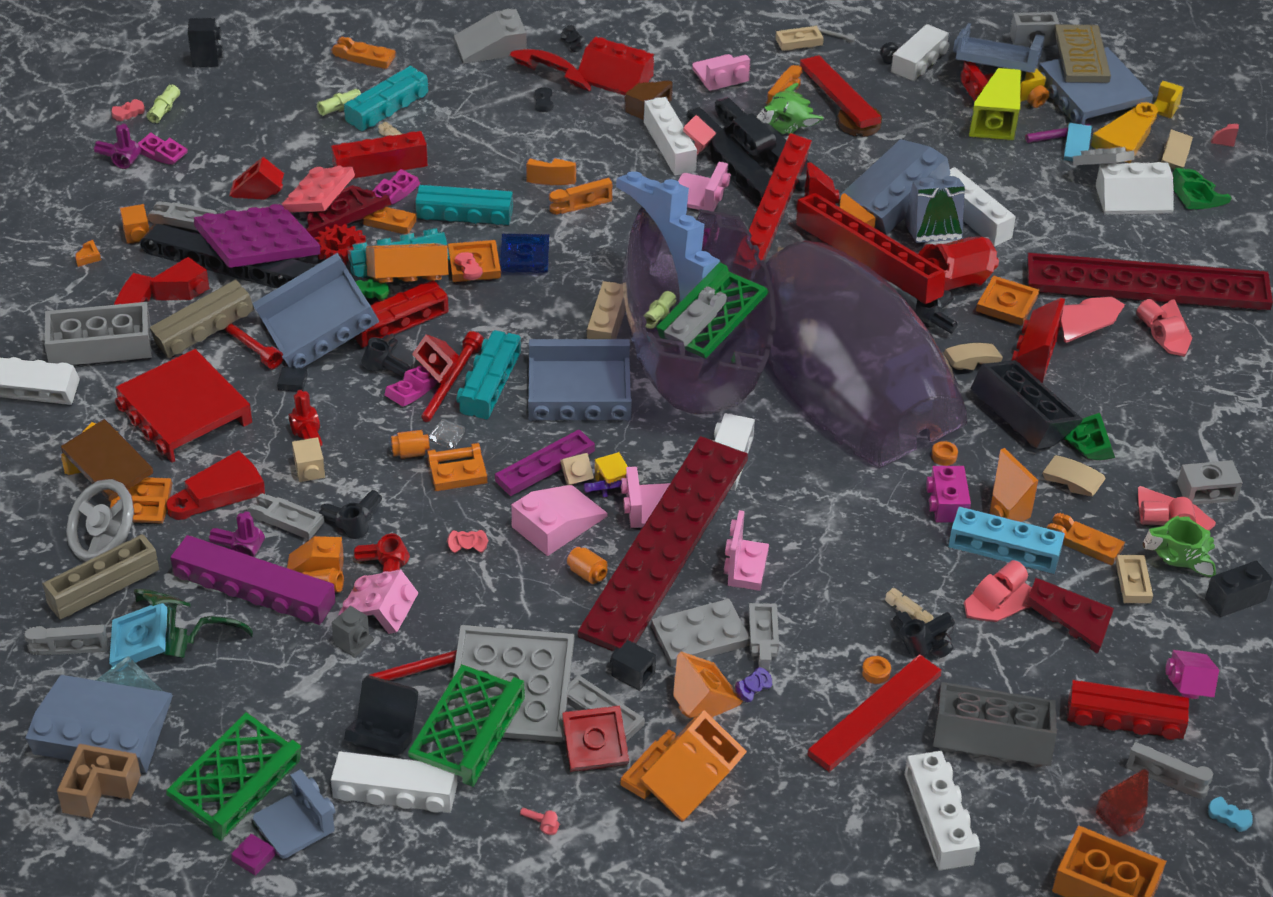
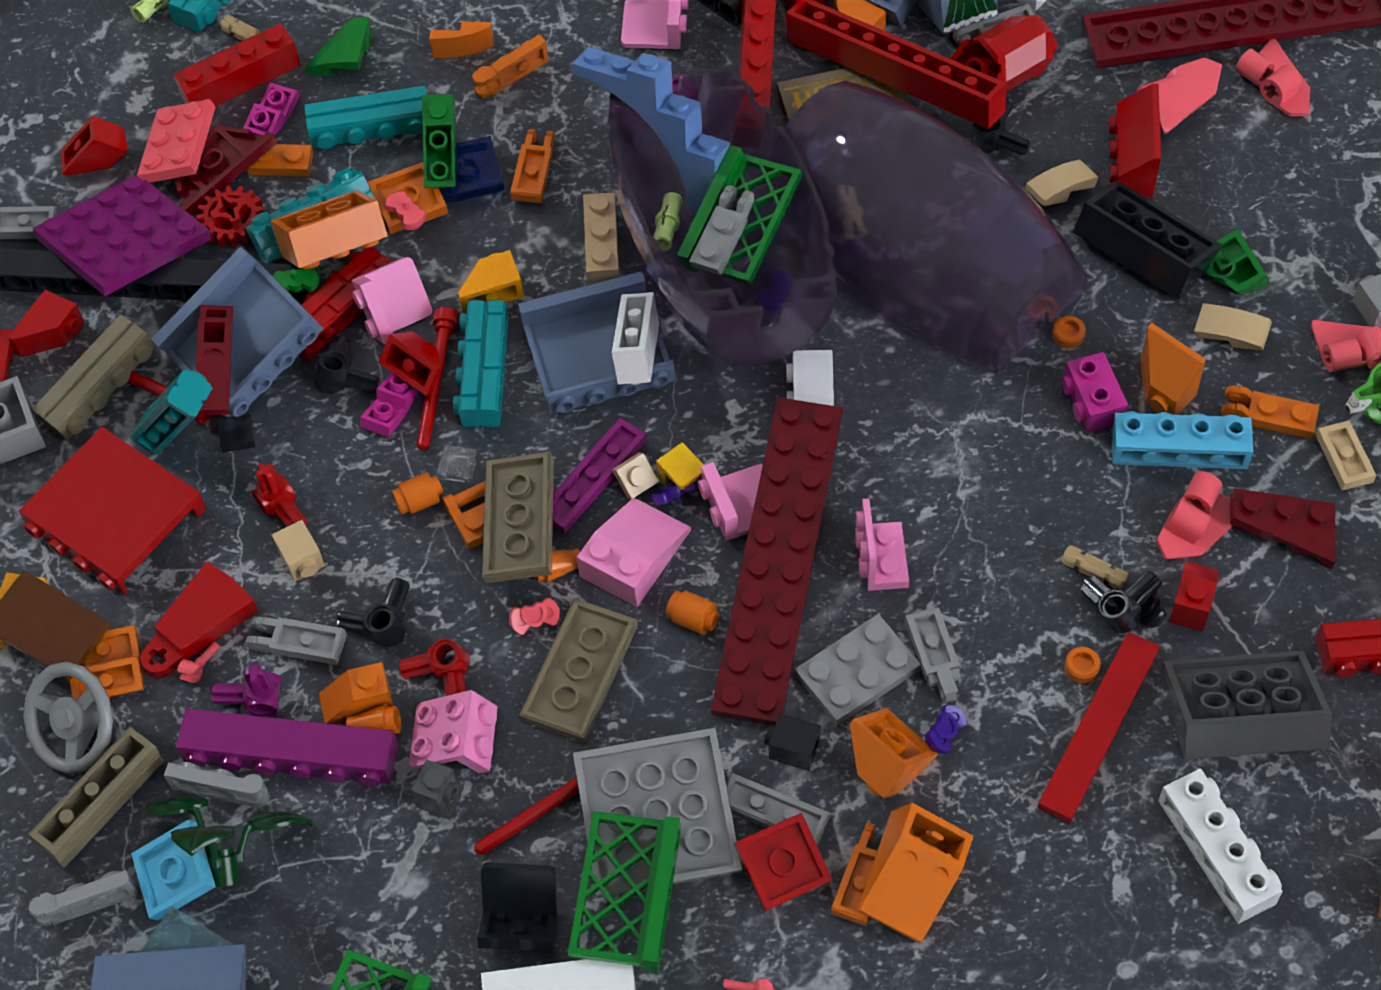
camera: 10 degrees left, 15 degrees up
(192, 591) = (217, 784): none -> light grey plate
(203, 518) = (193, 671): none -> coral hand
(247, 343) = (171, 411): none -> teal brick
(291, 322) = (214, 356): none -> dark red slope
(437, 315) = (391, 298): none -> bright pink bracket
(463, 161) = (343, 49): none -> green slope
(478, 472) = (518, 517): none -> dark tan tile
(488, 584) = (579, 670): none -> dark tan tile
(493, 511) = (562, 563): none -> orange cone
(509, 225) = (439, 141): none -> green slope
(516, 320) = (492, 279): none -> light orange slope
(574, 262) = (533, 168): none -> orange hinge
(606, 376) = (635, 338): none -> white brick
(979, 644) = (1194, 596): none -> red slope
(1007, 300) = (1078, 90): orange plate -> none

